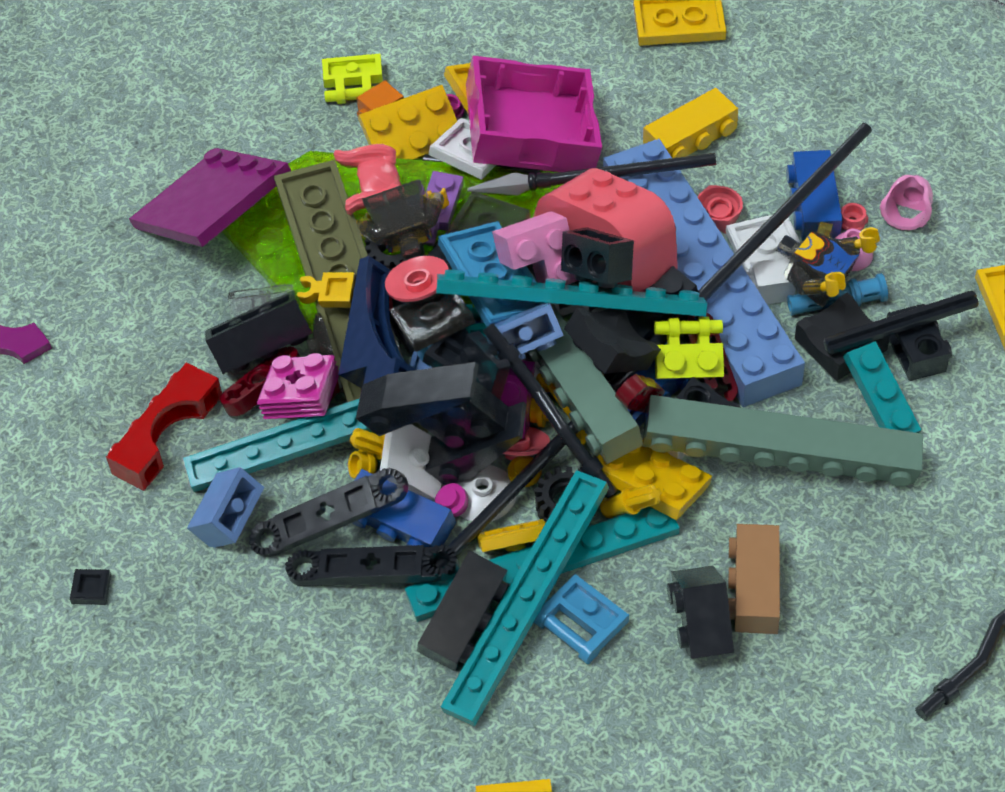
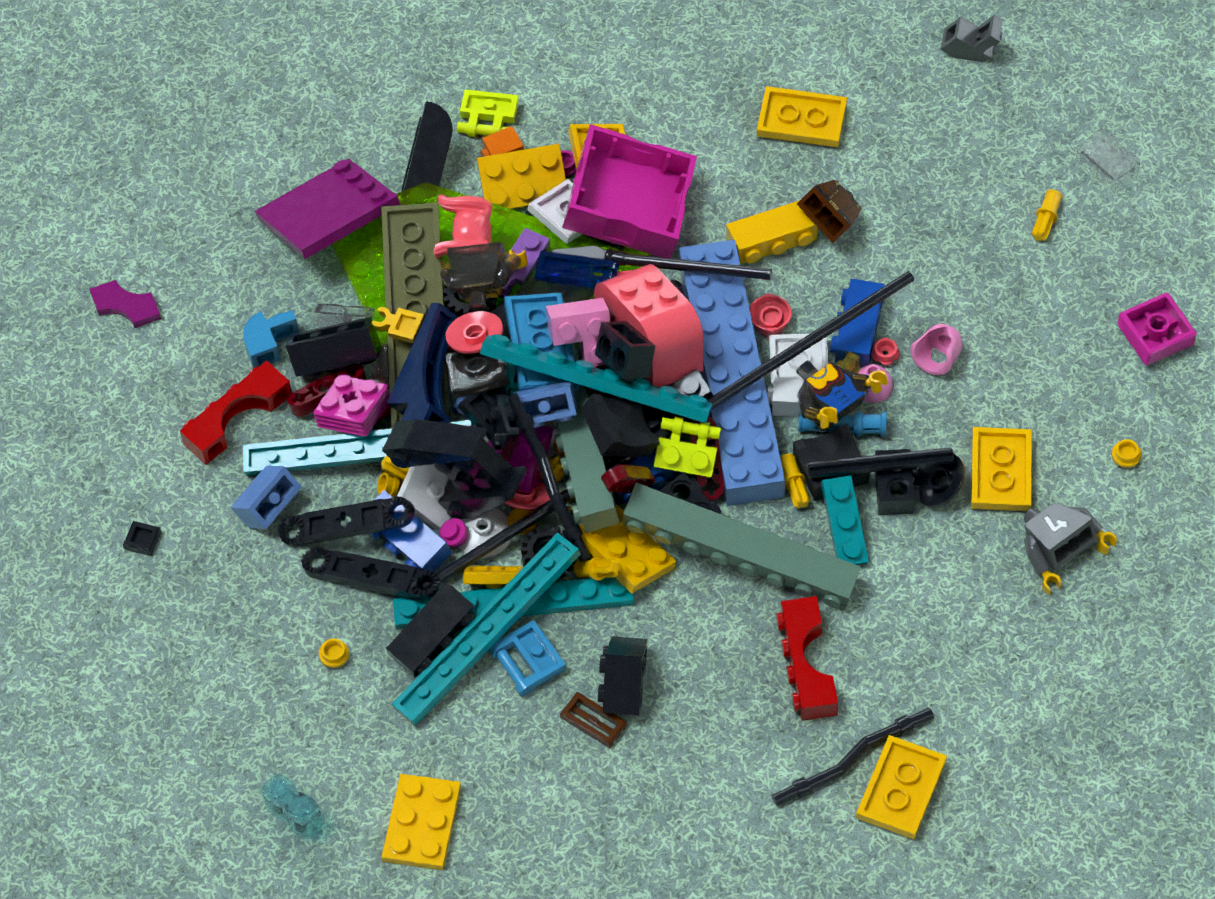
camera: 15 degrees right, 5 degrees up
(175, 339) = (262, 333): none -> dark azure brick
(303, 114) = (429, 147): none -> black brick
(353, 665) = (333, 653): none -> yellow plate
(502, 197) = (573, 269): none -> clear blue plate
(675, 682) = (587, 729): none -> reddish brown tile
(747, 91) = (830, 208): none -> reddish brown torso
(755, 578) = (679, 658): medium nougat brick -> none
(813, 369) = (794, 481): none -> yellow axle
(919, 581) = (814, 690): none -> red arch
(962, 58) = (1046, 214): none -> yellow axle
(982, 326) = (940, 482): none -> black dish

